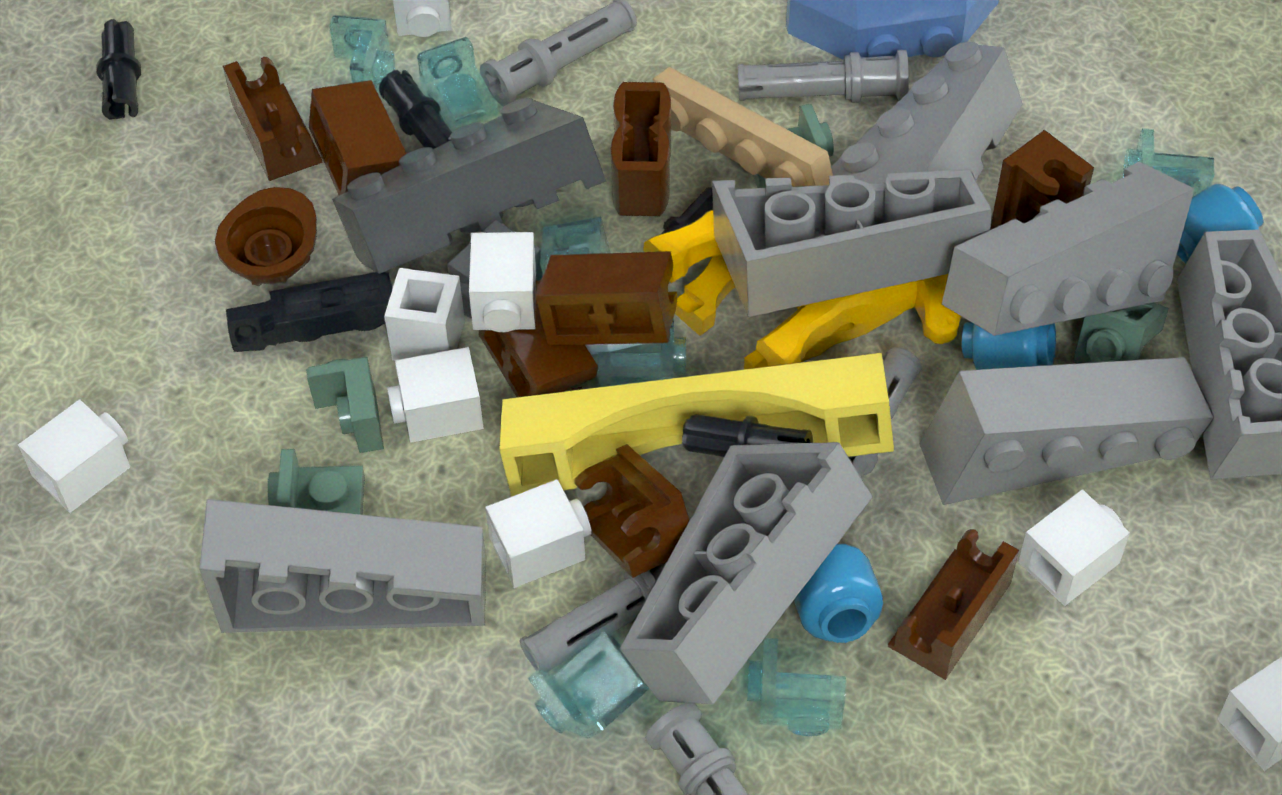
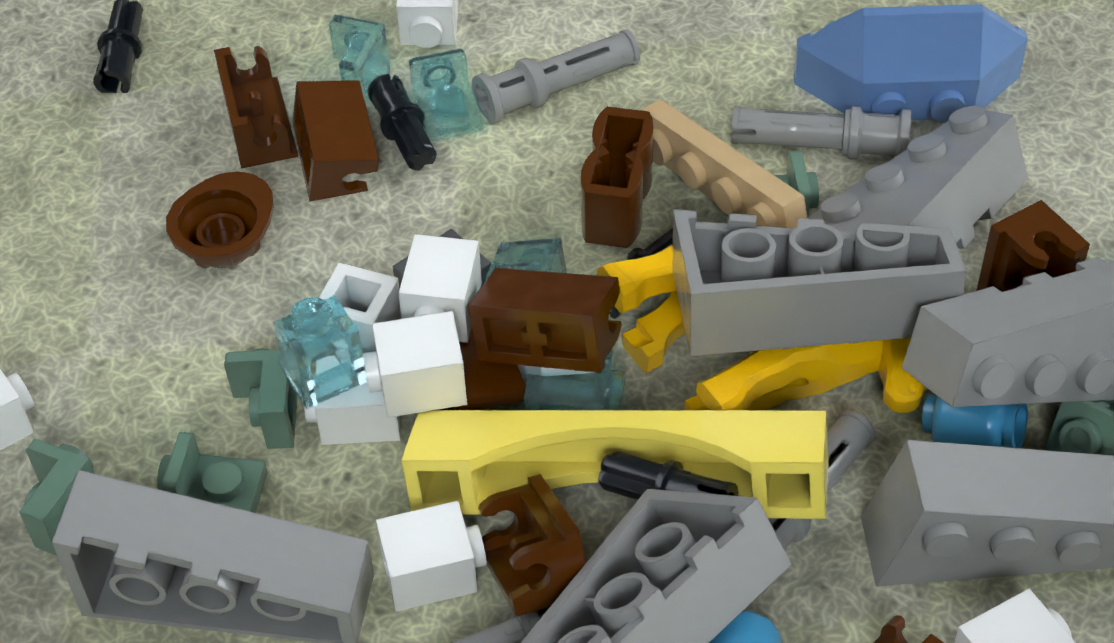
camera: 10 degrees right, 5 degrees down
(177, 524) = (45, 502): none -> sand green bracket
(311, 312) = (239, 298): black hinge -> none
(395, 341) = (311, 333): none -> clear light blue brick
(467, 183) = (430, 188): dark grey wedge -> none
(497, 357) = (417, 364): none -> white brick

